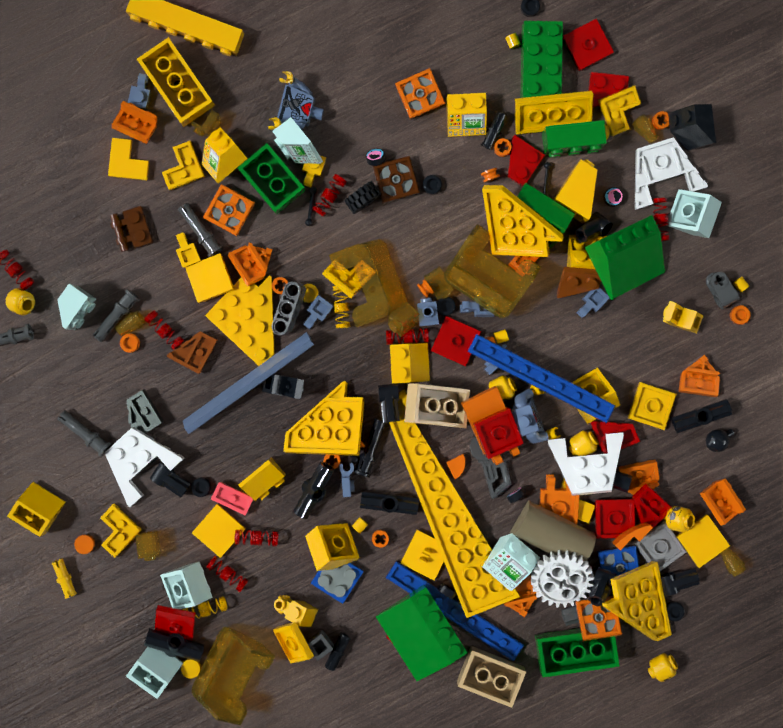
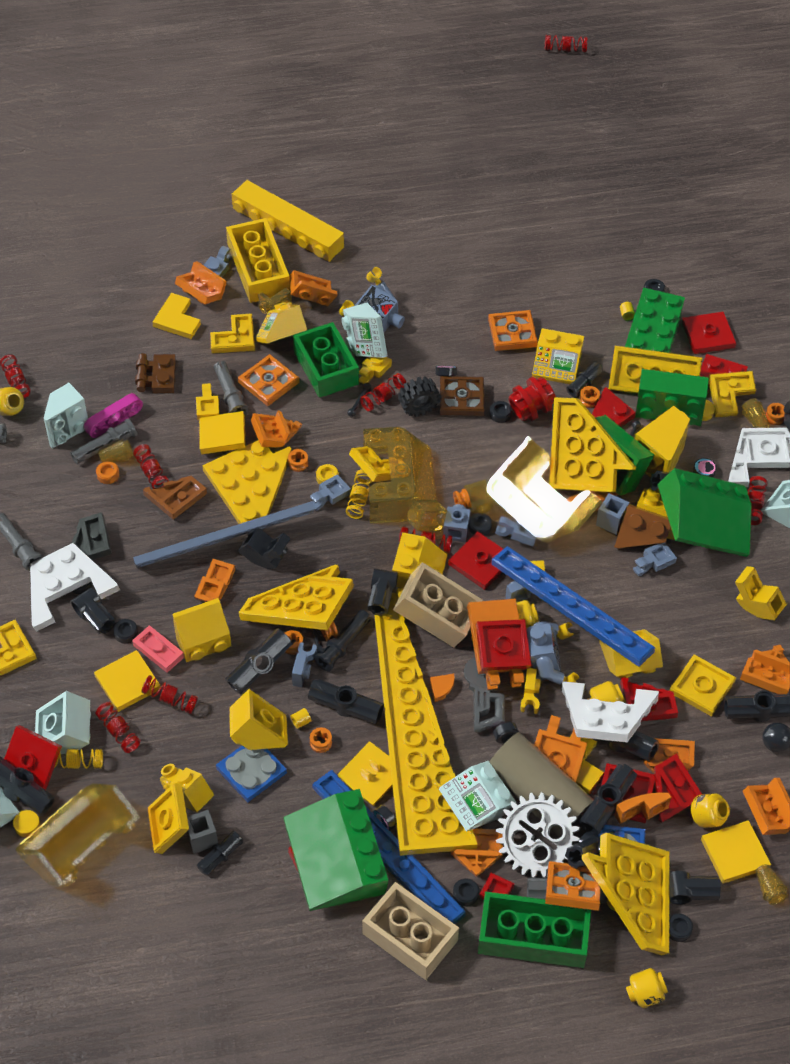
camera: 15 degrees right, 35 degrees down
(113, 287) = (101, 421): none -> dark pink beam
(148, 545) = (36, 669): clear yellow brick -> none
(233, 101) = (311, 288): none -> orange bracket
(254, 424) = (216, 581): none -> orange slope
(281, 313) = (299, 477): dark grey beam -> none
(456, 170) = (532, 398): none -> red piece
(519, 628) = (465, 892): none -> black tile
(525, 449) = (532, 686): none -> yellow plate
(540, 620) = (497, 885): none -> red tile
(550, 272) = (611, 513): none -> sand blue brick
(610, 524) = (614, 788): none -> black piece
(660, 546) = (682, 841): light grey tile -> none

